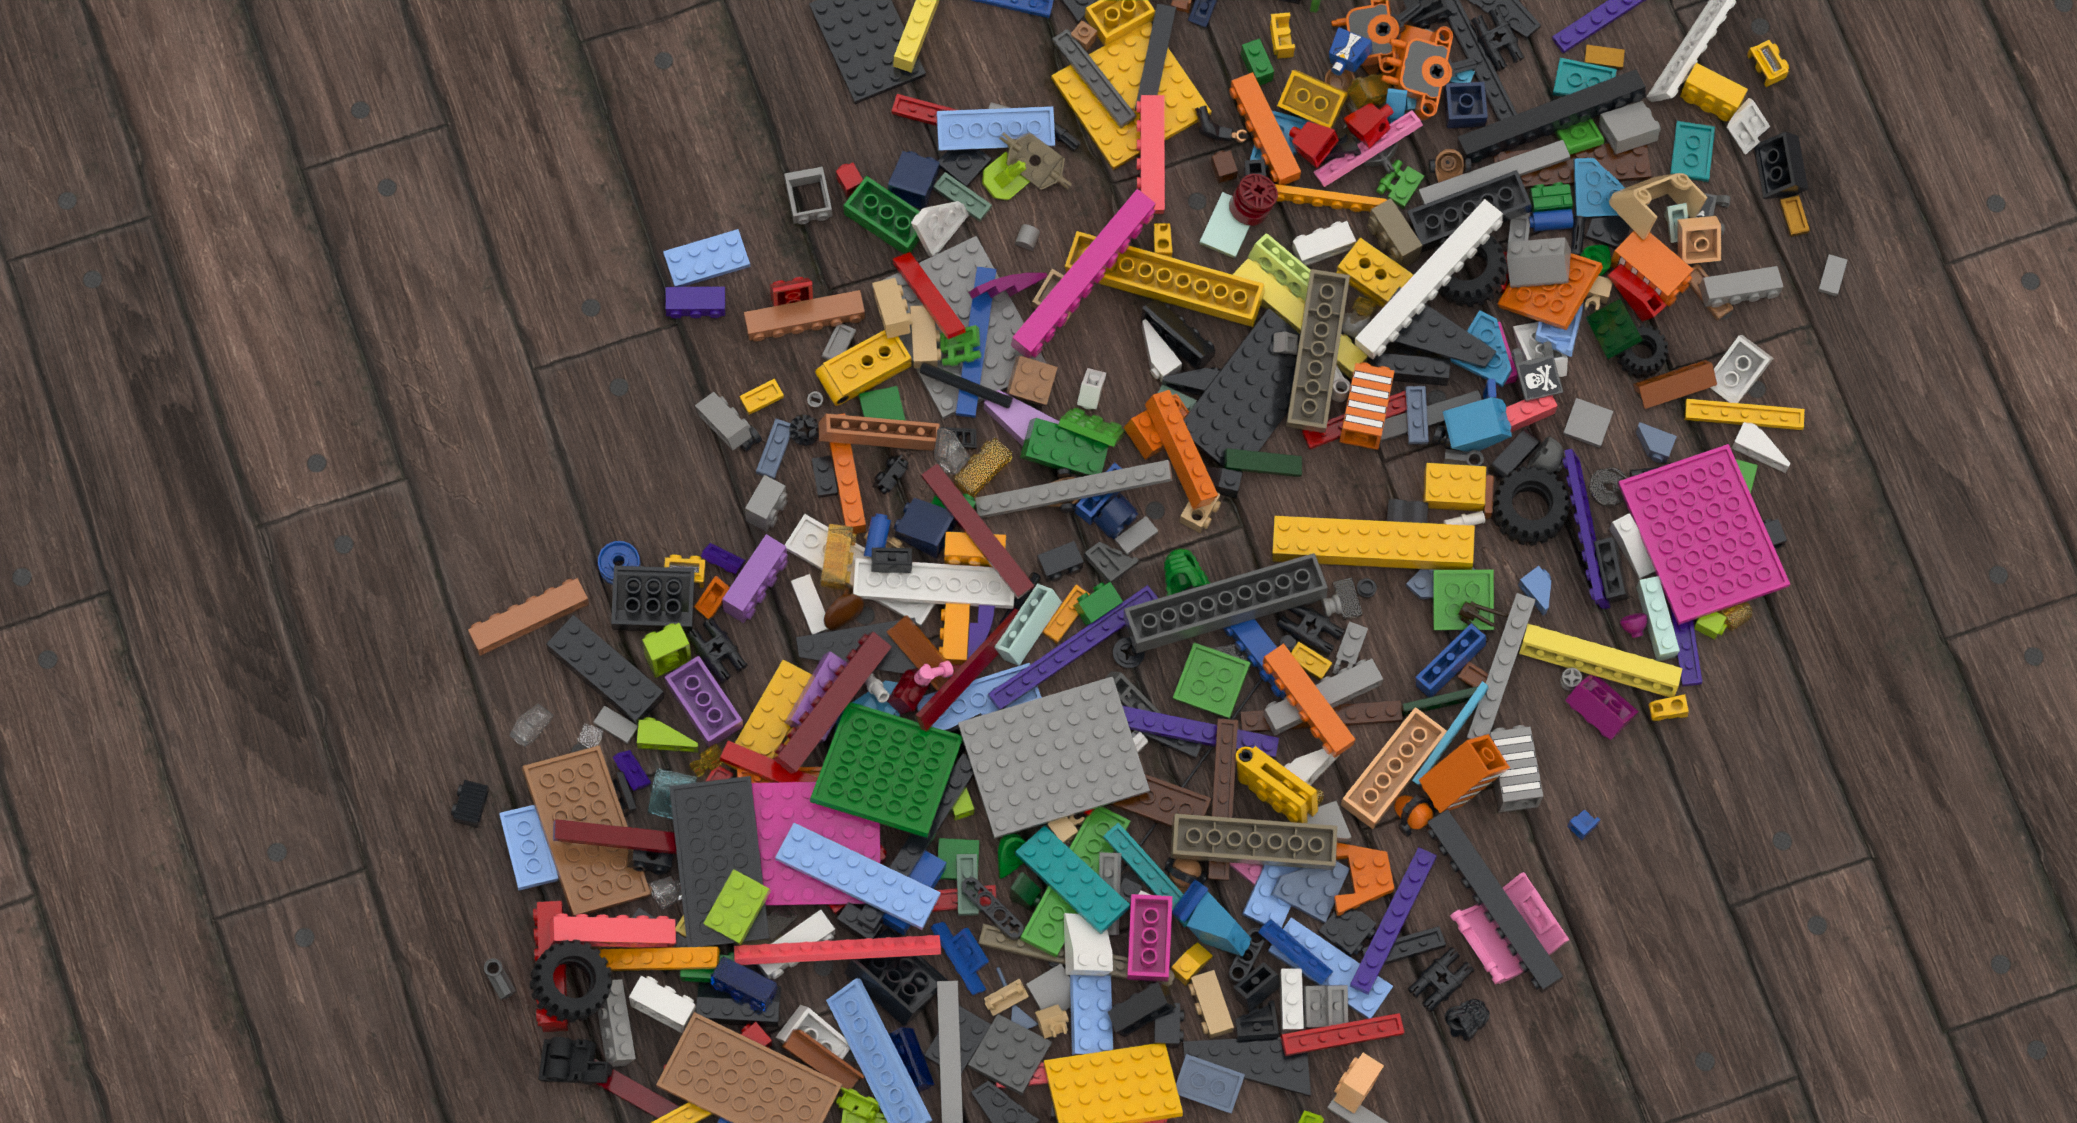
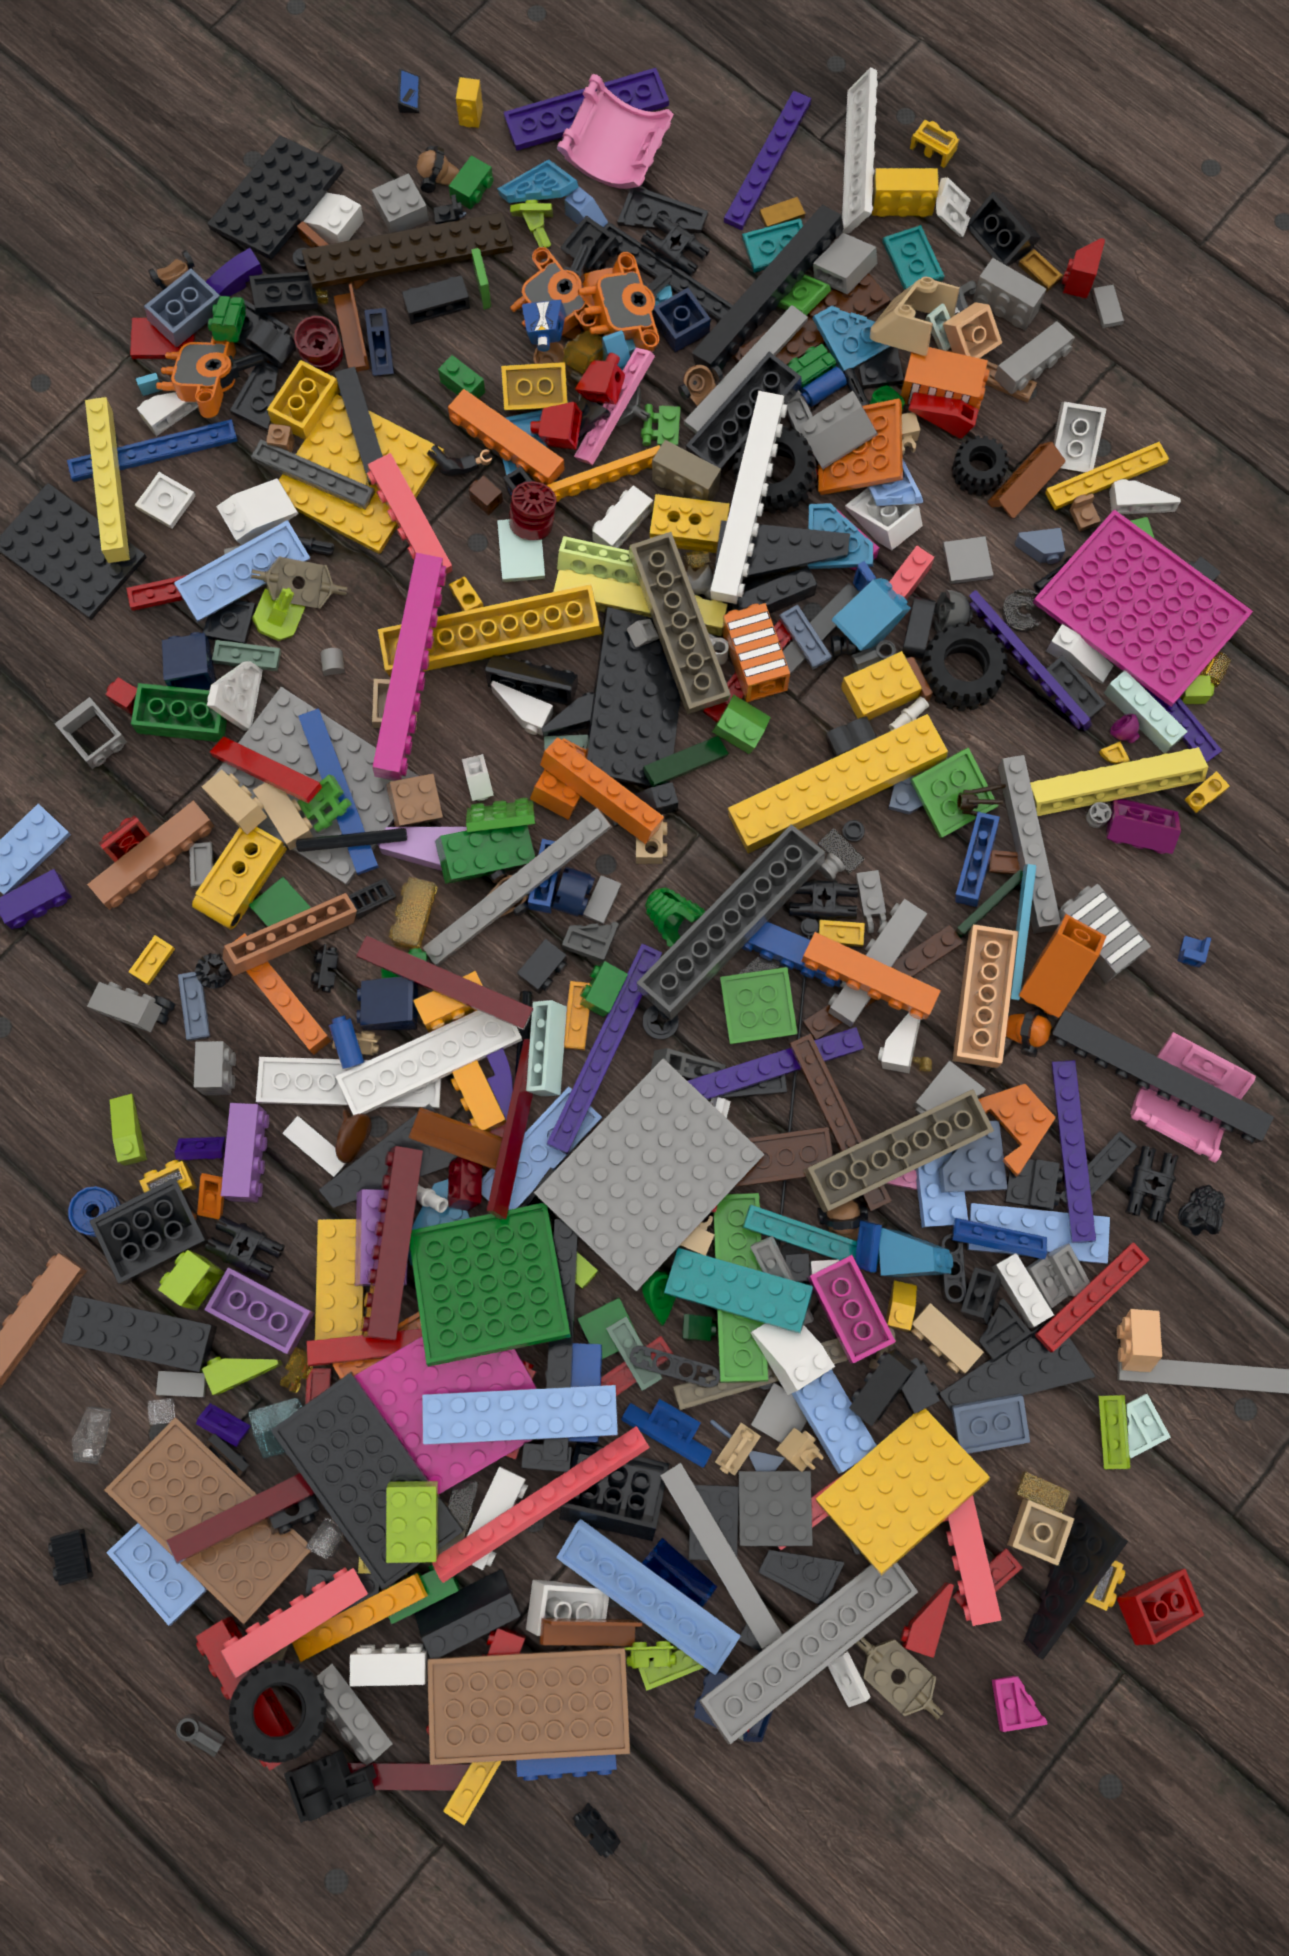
camera: 25 degrees left, 5 degrees up
(674, 516) = (126, 1131): none -> lime slope
(743, 984) = (463, 1599): clear blue brick -> none
(817, 395) = (205, 929): light grey hinge -> none
(824, 476) = (259, 1007): black plate -> none
(838, 556) = (317, 1084): clear yellow brick -> none
(891, 560) = (373, 1058): black slope -> none
(927, 674) = (475, 1159): bright pink leg -> none
(949, 452) = (372, 916): clear slope -> none
(965, 38) = (165, 500): none -> white plate
(1012, 284) = (341, 715): magenta slope -> none
(1033, 85) = (256, 510): none -> white slope
(1276, 784) = (885, 1078): yellow hinge -> none
(1281, 35) = (469, 344): yellow window -> none
(1325, 457) = (741, 724): none -> bright green slope
(1537, 586) = (1016, 741): medium blue slope -> none
(1538, 376) = (901, 537): flag -> none
(1614, 328) = (944, 456): dark green plate -> none
(1614, 639) = (1114, 754): none -> yellow tile
(1707, 434) = (1084, 512): none -> medium nougat bracket
(1749, 223) = (1009, 294): none -> light grey brick
(1826, 234) = (1083, 269): none -> red slope

